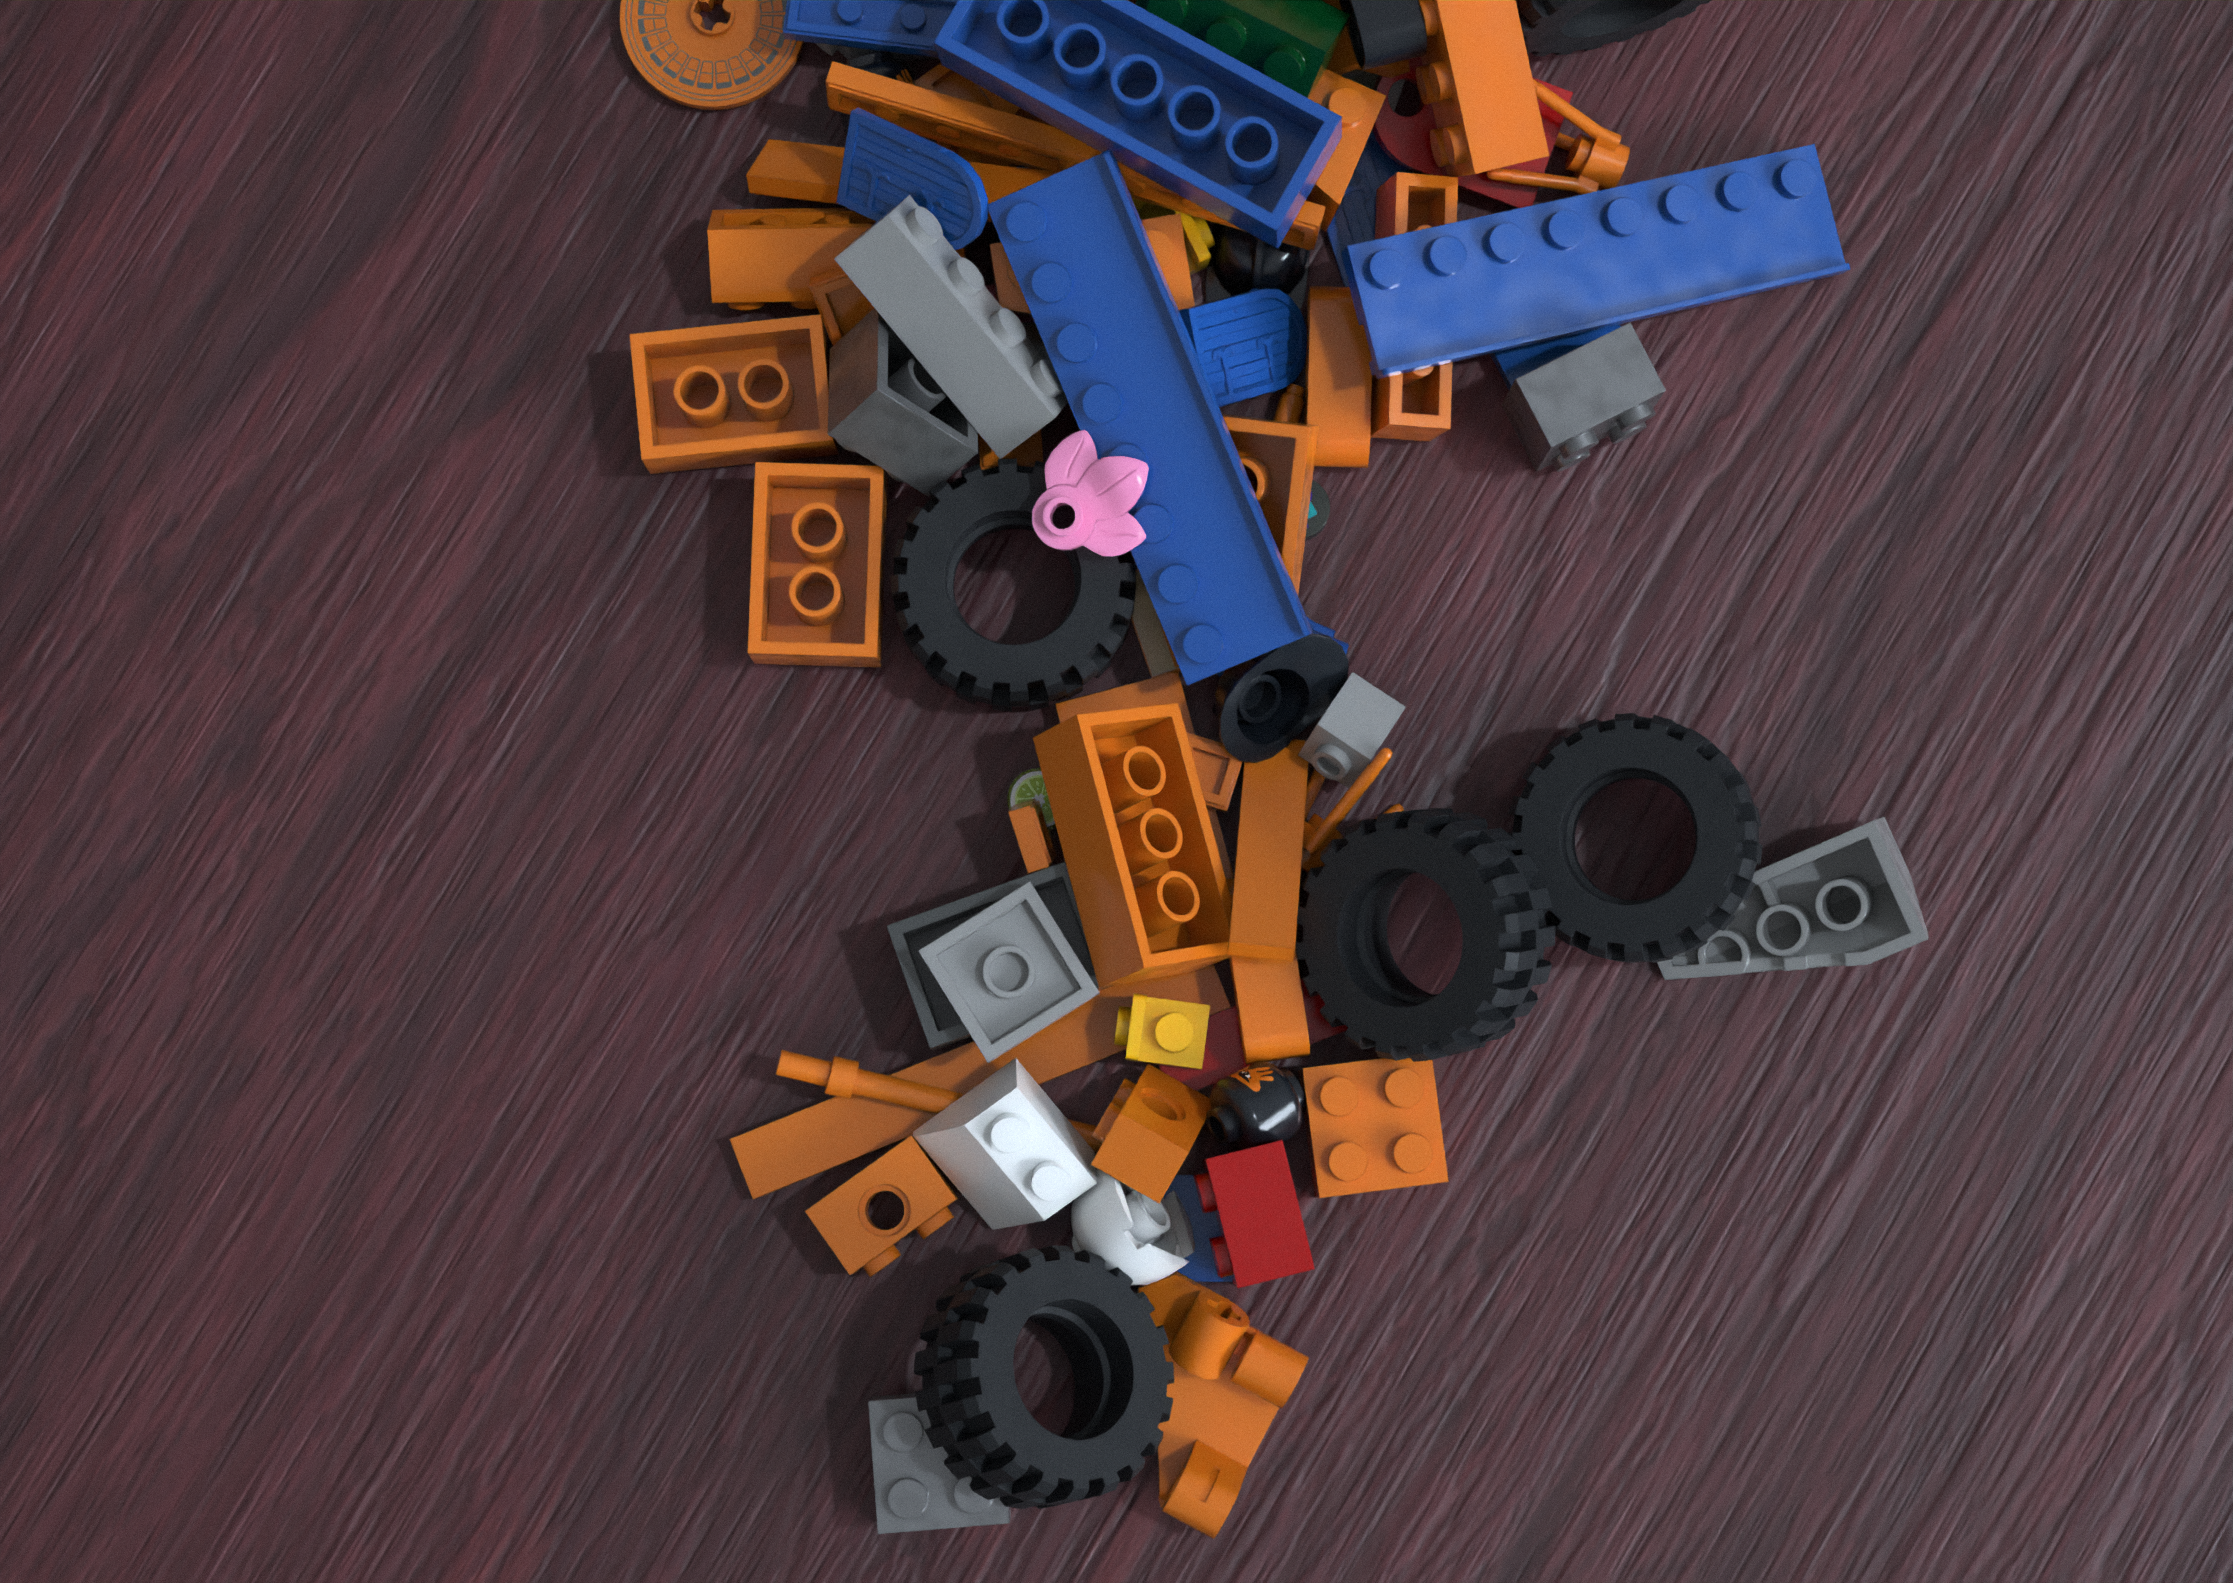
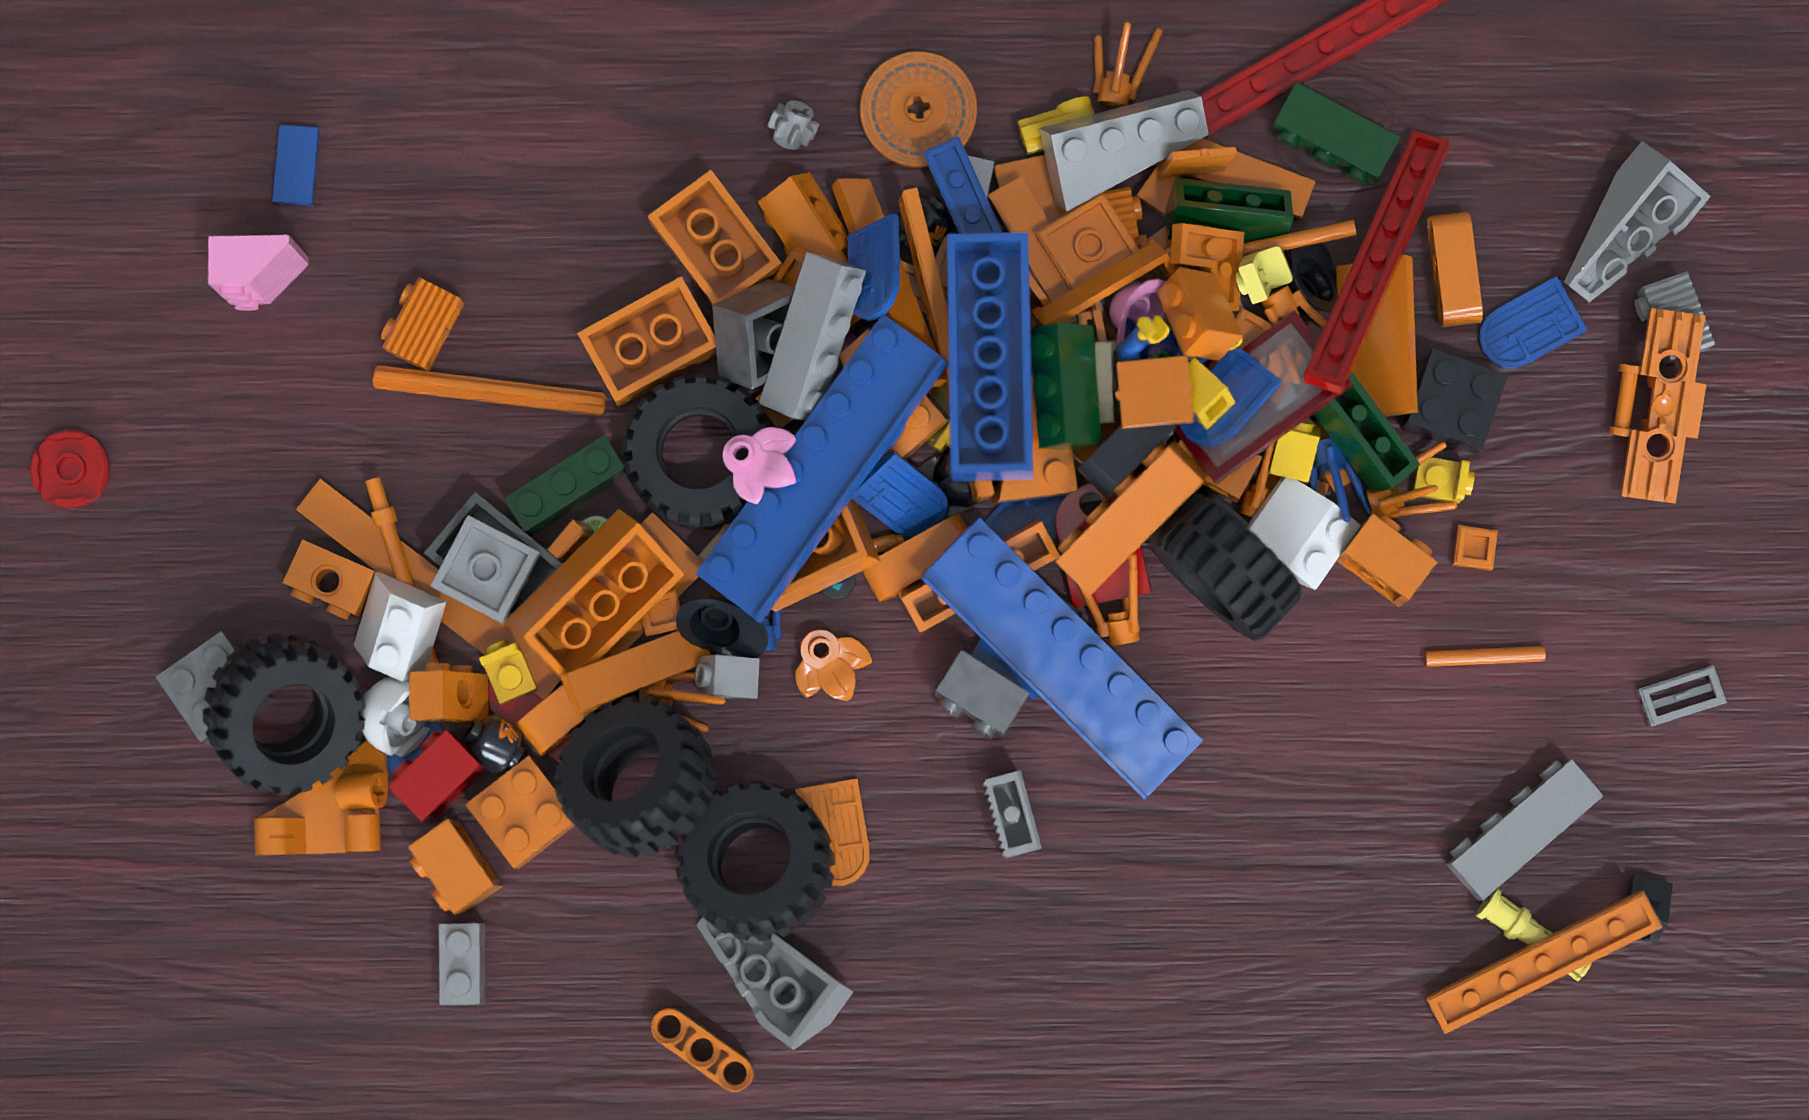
camera: 65 degrees right, 0 degrees up
(262, 916) = (296, 165): none -> blue tile
(375, 1052) = (253, 267): none -> bright pink slope
(500, 1488) = (70, 469): none -> red tile
(597, 868) = (422, 323): none -> orange brick
(632, 194) = (793, 124): none -> light grey gear
(747, 831) = (489, 390): none -> orange axle
(949, 798) = (566, 486): none -> dark green brick
(1398, 1264) = (454, 867): none -> orange brick
(1420, 582) = (832, 670): none -> orange plate
(1535, 1334) = (462, 963): none -> light grey brick
(1622, 684) = (842, 815): none -> orange window
(1769, 456) = (1012, 814): none -> light grey brick
(1876, 1064) = (682, 1046): none -> orange beam

